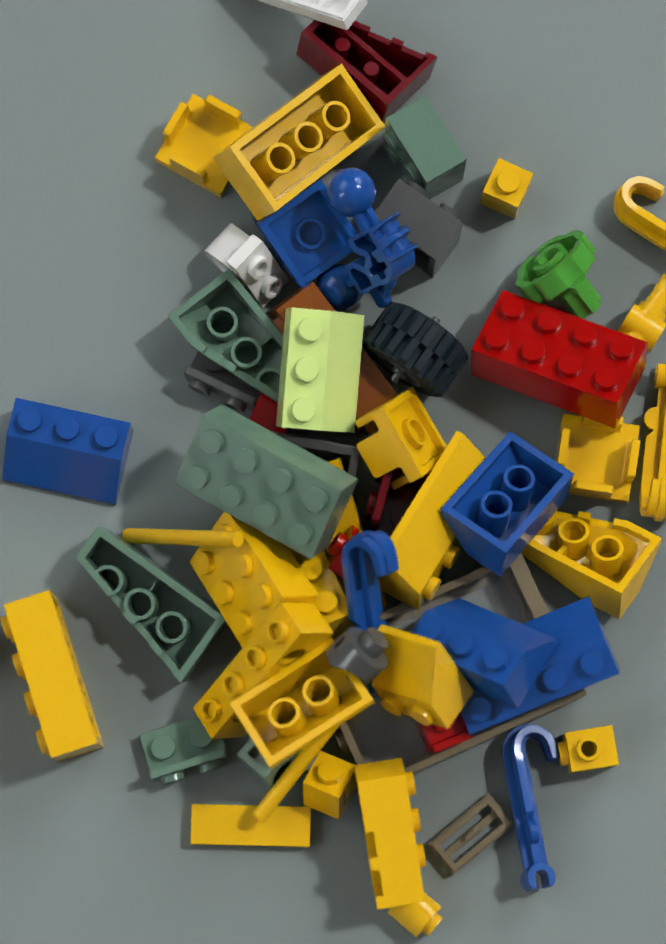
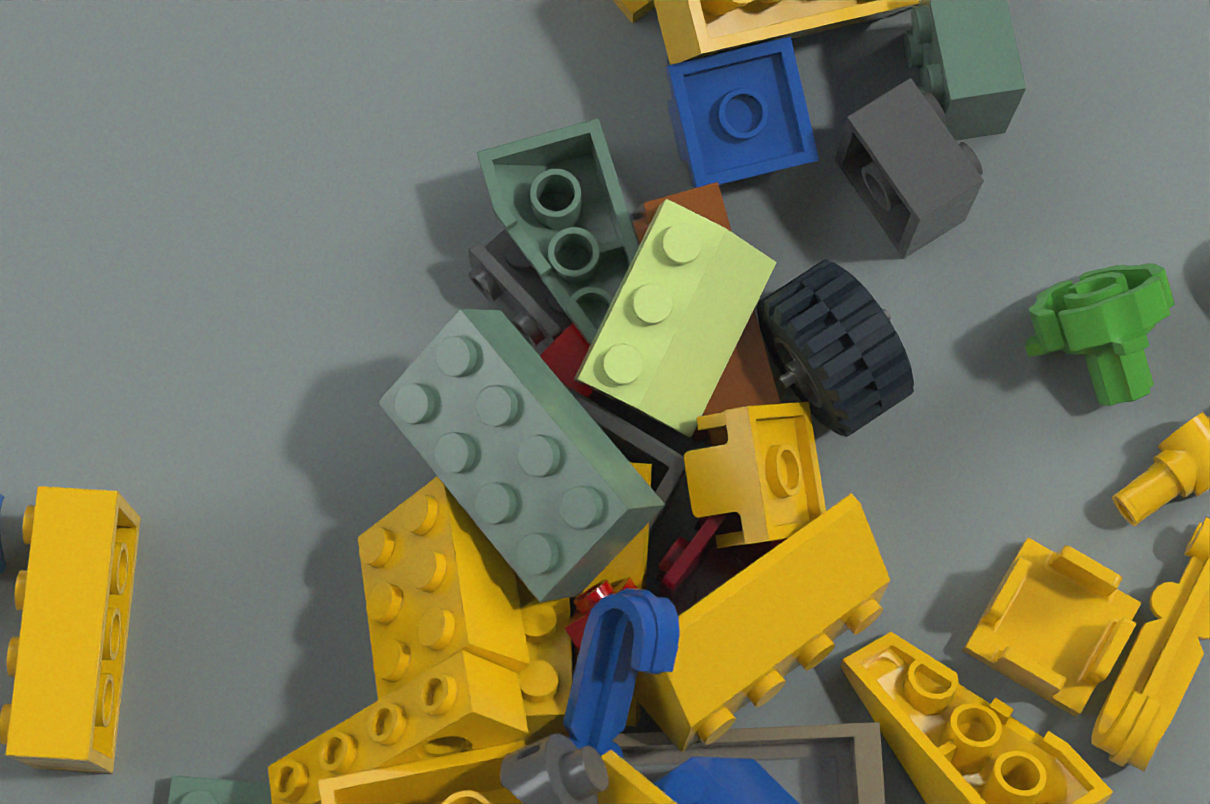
camera: 20 degrees right, 5 degrees down
(66, 451) = (245, 299): blue slope -> none
(160, 606) = (287, 593): sand green wedge -> none
(183, 537) = (362, 494): yellow bar -> none
(249, 262) = (634, 127): white pin -> none
(381, 244) = (845, 157): blue piece -> none
(506, 188) = (1068, 165): yellow brick -> none
(506, 502) = (886, 638): blue slope -> none
(558, 358) = (1055, 448): red brick -> none

